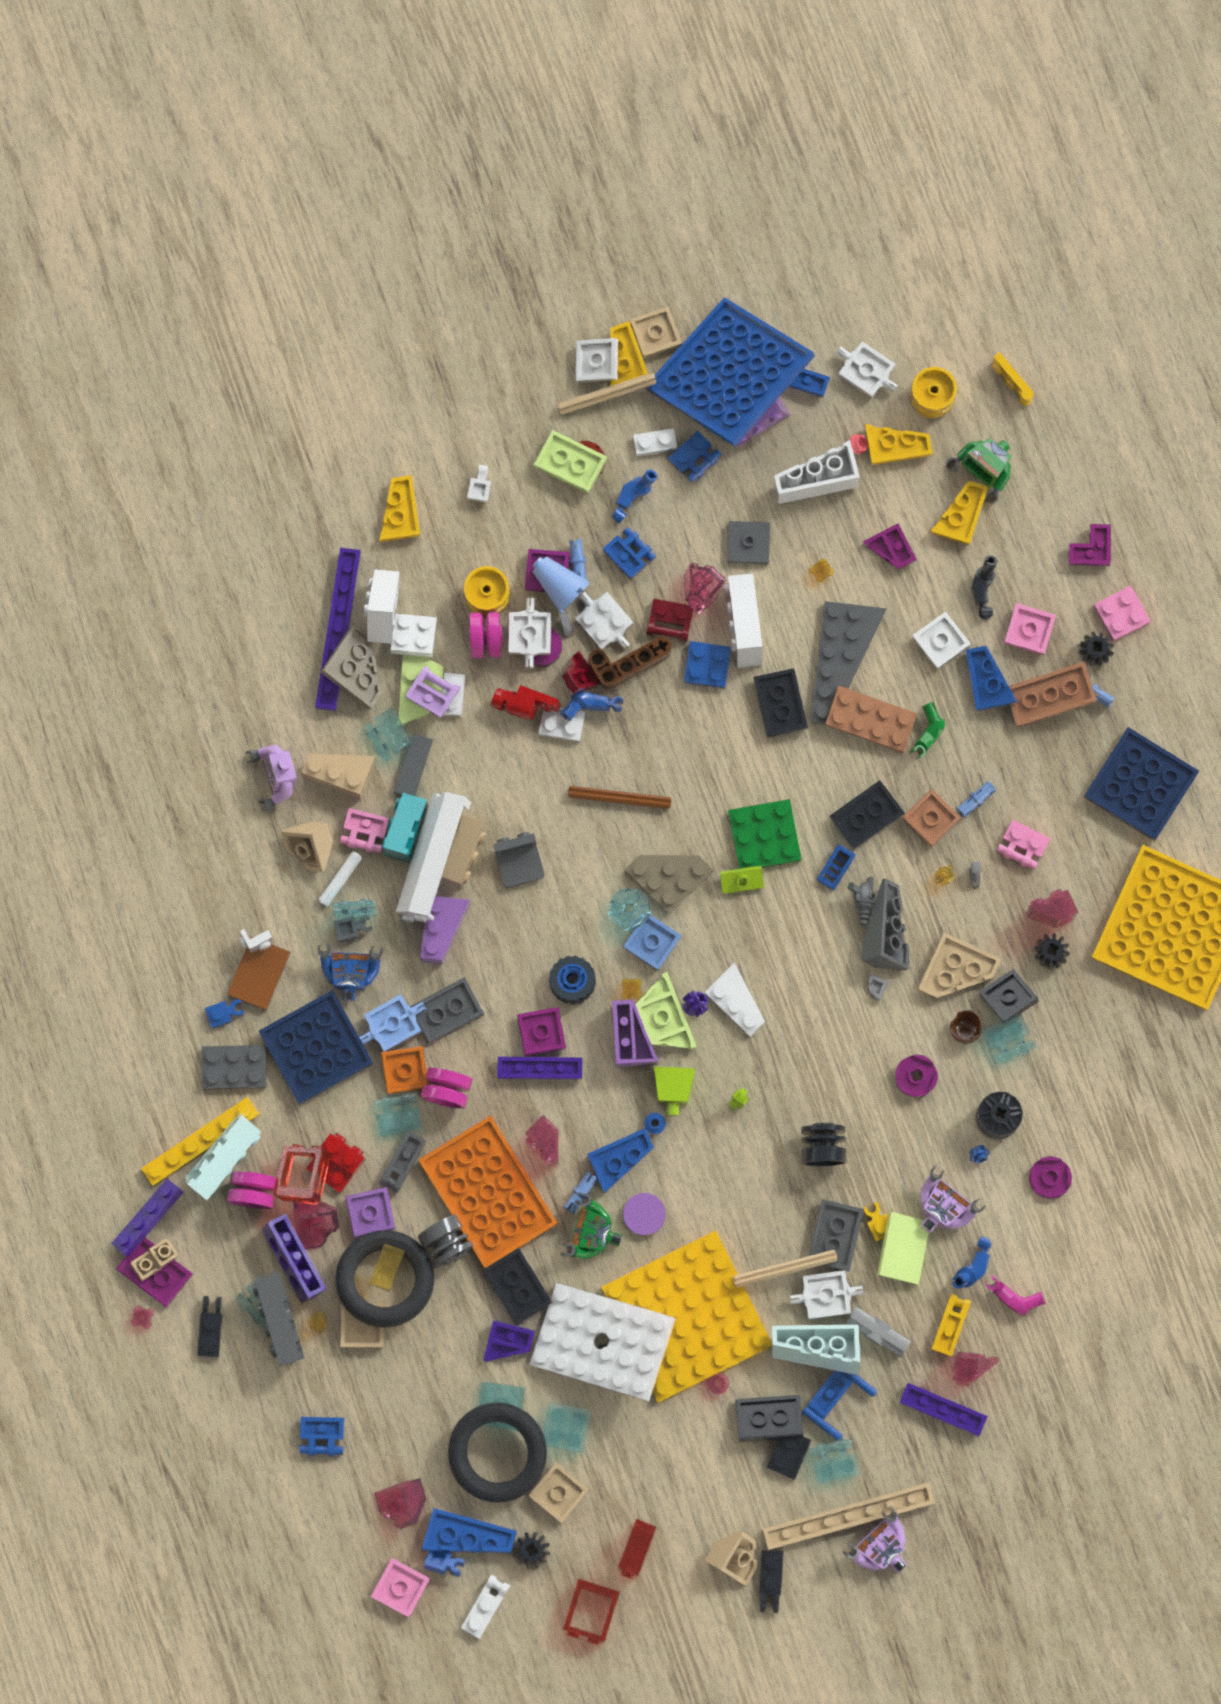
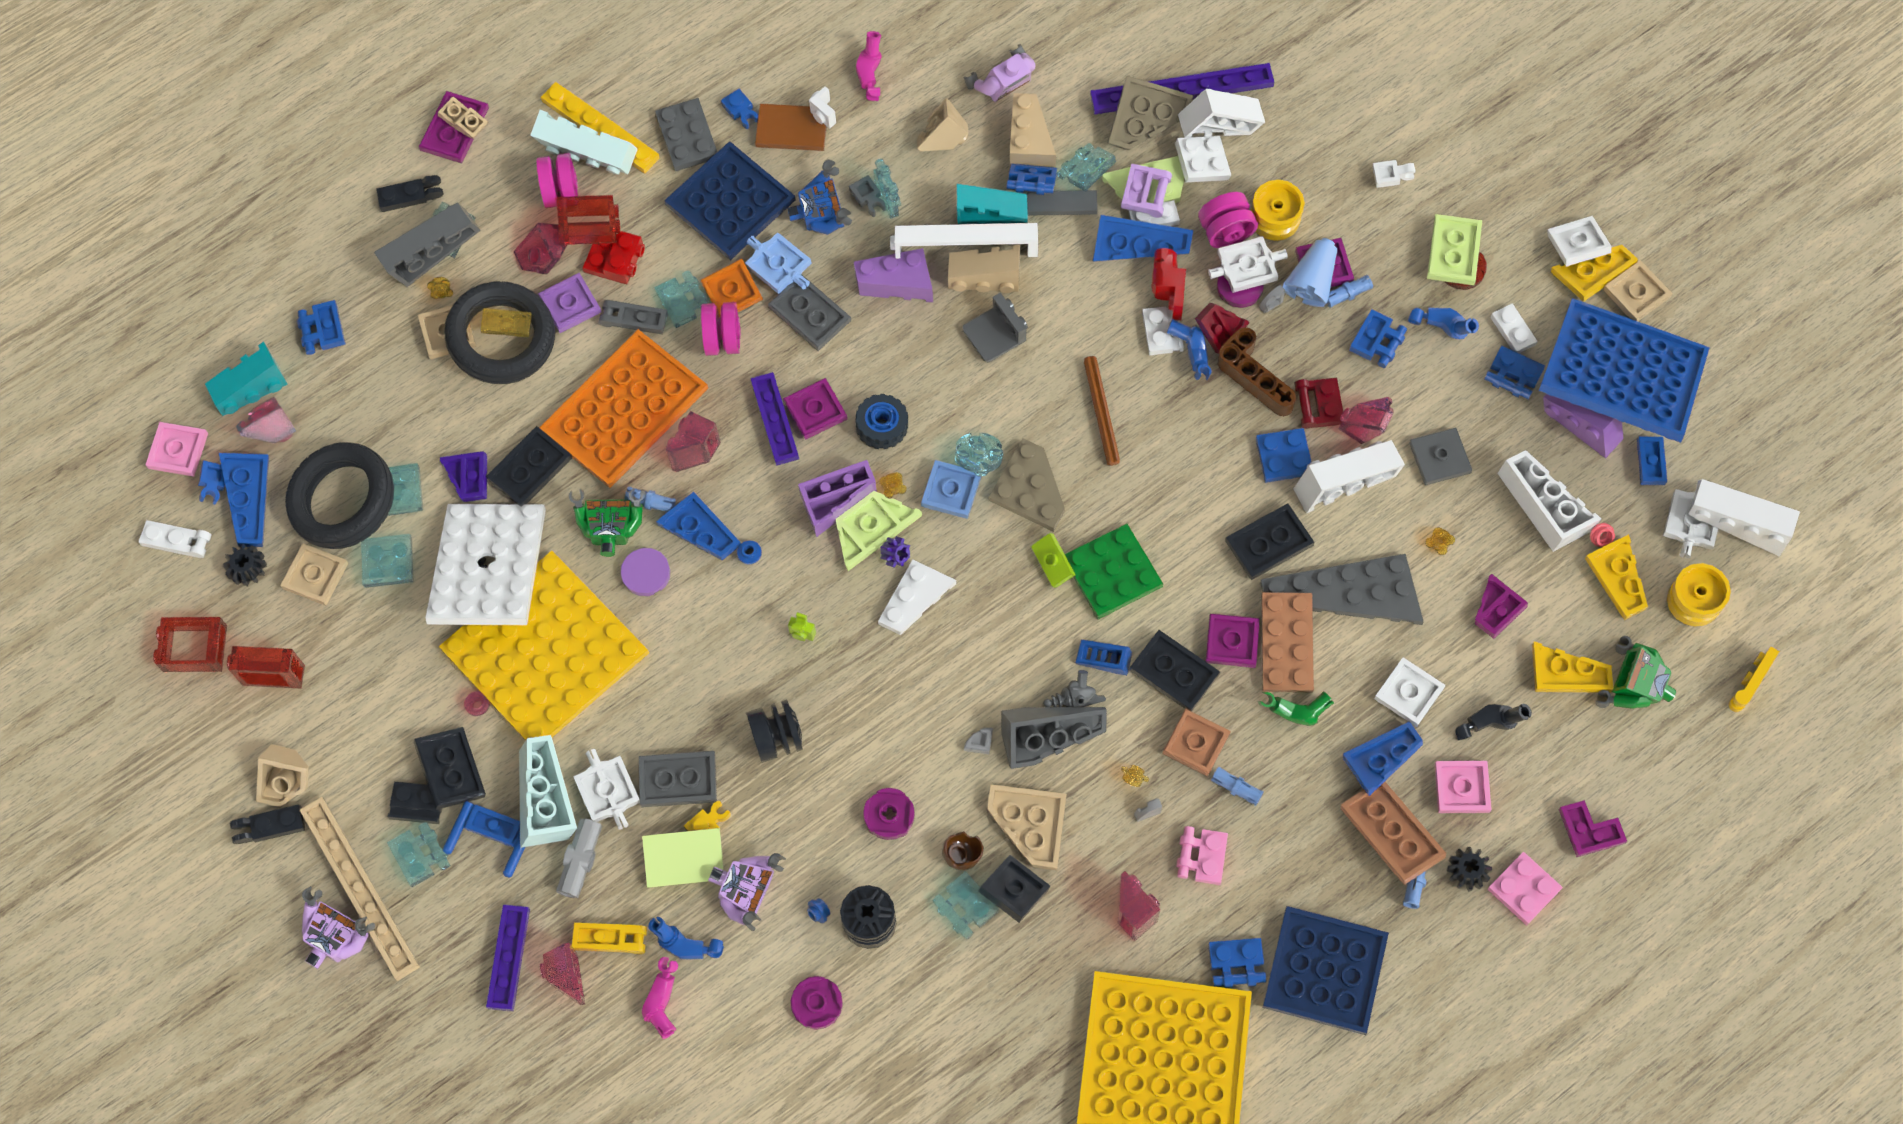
camera: 75 degrees right, 10 degrees down
(138, 1312) = (399, 125): clear pink plate -> none
(147, 1217) = (502, 100): dark purple plate -> none
(218, 888) = (867, 64): none -> dark pink arm
(293, 1258) = (497, 242): dark purple brick -> none
(339, 879) = (917, 170): white axle -> none
(358, 1512) = (246, 382): none -> teal wedge
(366, 824) = (982, 169): bright pink plate -> none
(380, 782) = (1032, 178): none -> blue plate
(401, 511) = (1333, 109): yellow wing -> none
(445, 1241) = (558, 373): dark grey wheel -> none
(471, 718) = (1136, 239): none -> blue wing
(604, 621) = (1292, 337): white plate -> none
(606, 393) = (1546, 262): tan axle -> none
(673, 1087) = (794, 558): lime torso -> none
(785, 1268) = (622, 732): tan axle -> none
(855, 761) = (1232, 640): none -> magenta plate
(882, 332) = (1745, 516): none -> white wedge
(1059, 955) = (1086, 914): black gear -> none
(1108, 847) = (1237, 954): none -> blue plate

